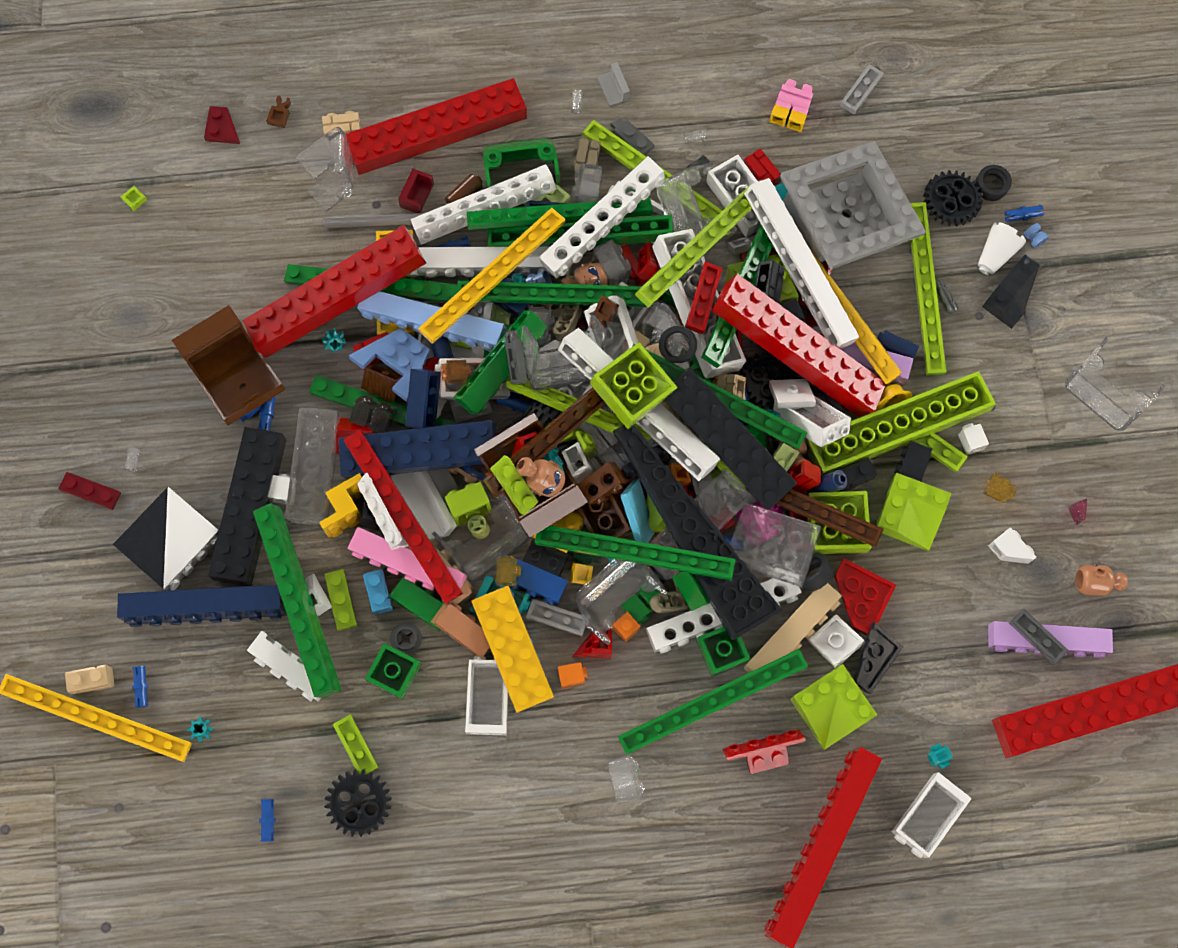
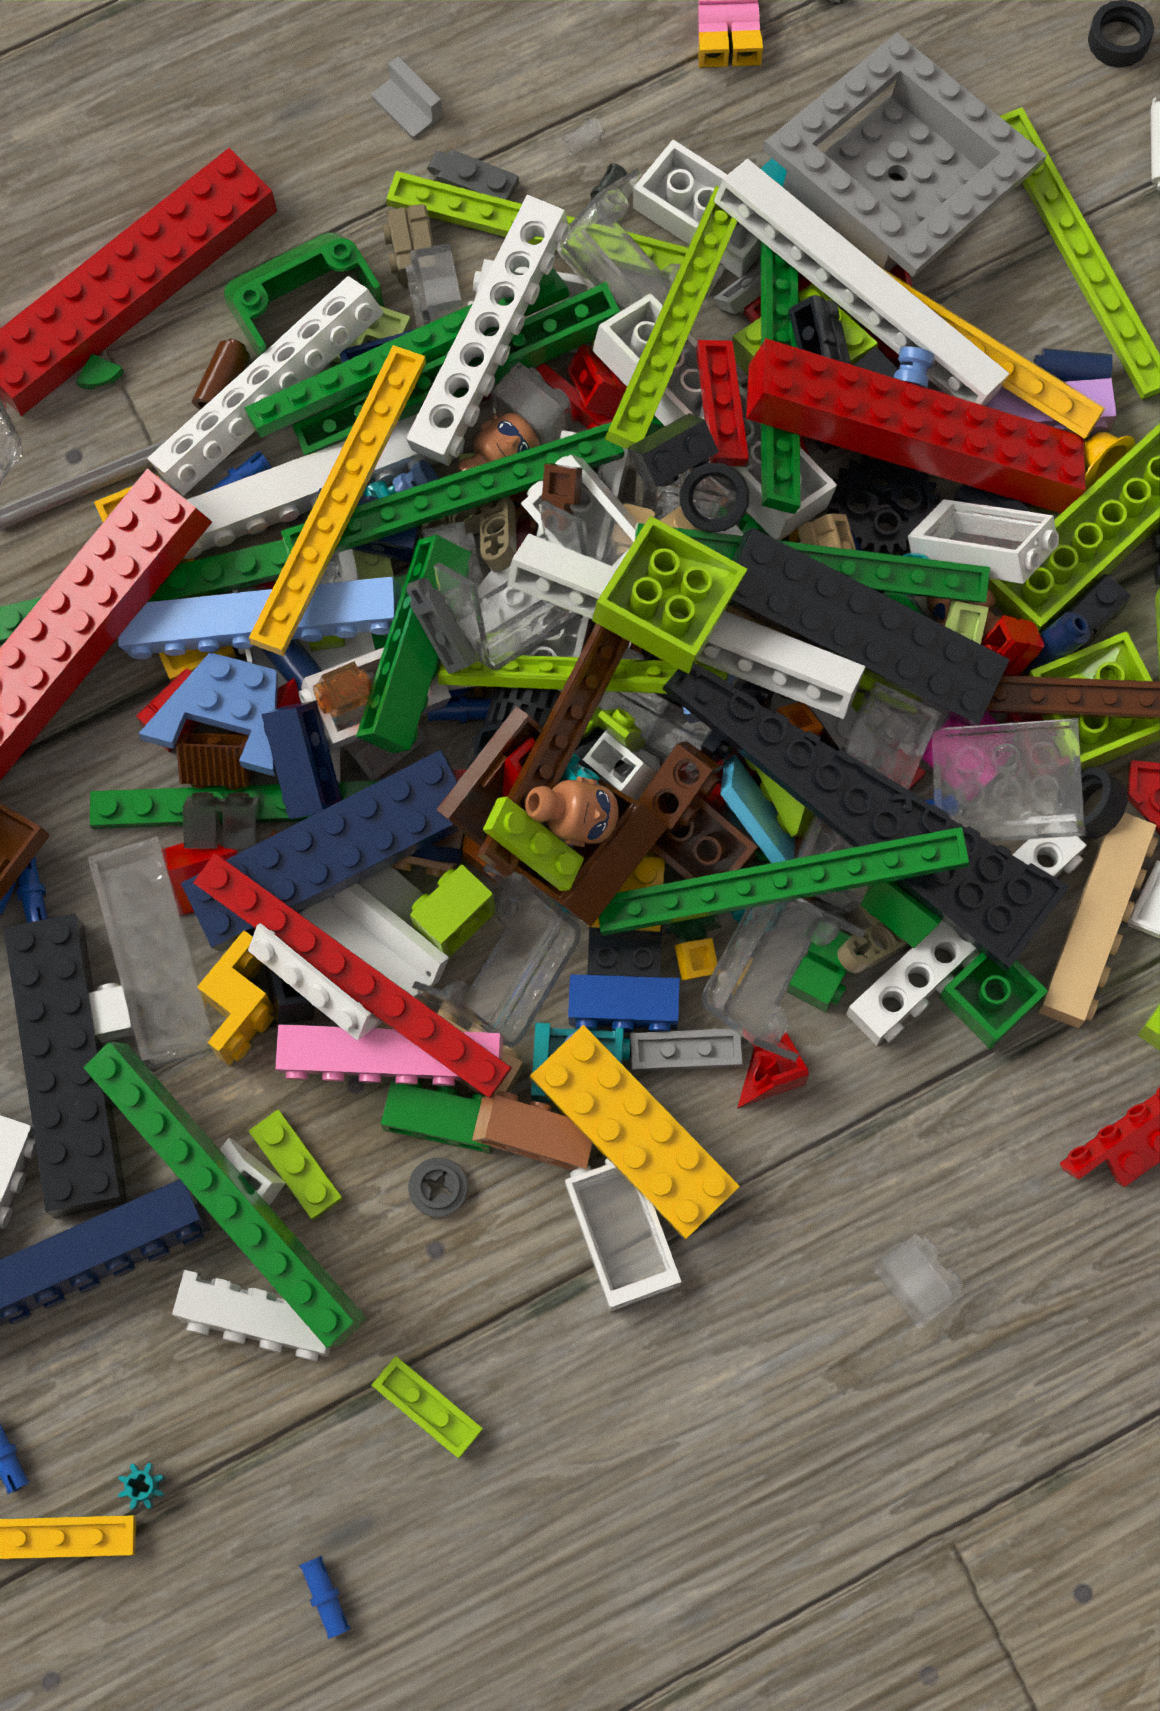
camera: 15 degrees left, 0 degrees up
(333, 340) = (97, 718): teal gear -> none
(351, 785) = (496, 1527): black gear -> none
(378, 592) = (357, 1126): dark azure brick -> none
(393, 671) = (440, 1252): green brick -> none
(403, 167) = (98, 373): none -> green tile
(416, 191) = (136, 406): dark red panel -> none
(478, 522) = (479, 939): yellowish green wheel -> none
(507, 571) = (571, 1001): clear yellow brick -> none
(572, 675) = (752, 1138): orange brick -> none
(577, 96) = (352, 145): clear pin -> none
(626, 627) = (811, 1019): orange brick -> none
(666, 313) = (673, 450): none -> black brick
(712, 701) = (1012, 1088): green plate -> none
(762, 167) = (721, 146): red brick -> none
(792, 393) = (933, 512): white plate -> none
(810, 315) = (914, 365): none -> medium blue wheel
(946, 296) = (1121, 254): dark grey axle -> none
(953, 198) = (1064, 83): black gear -> none

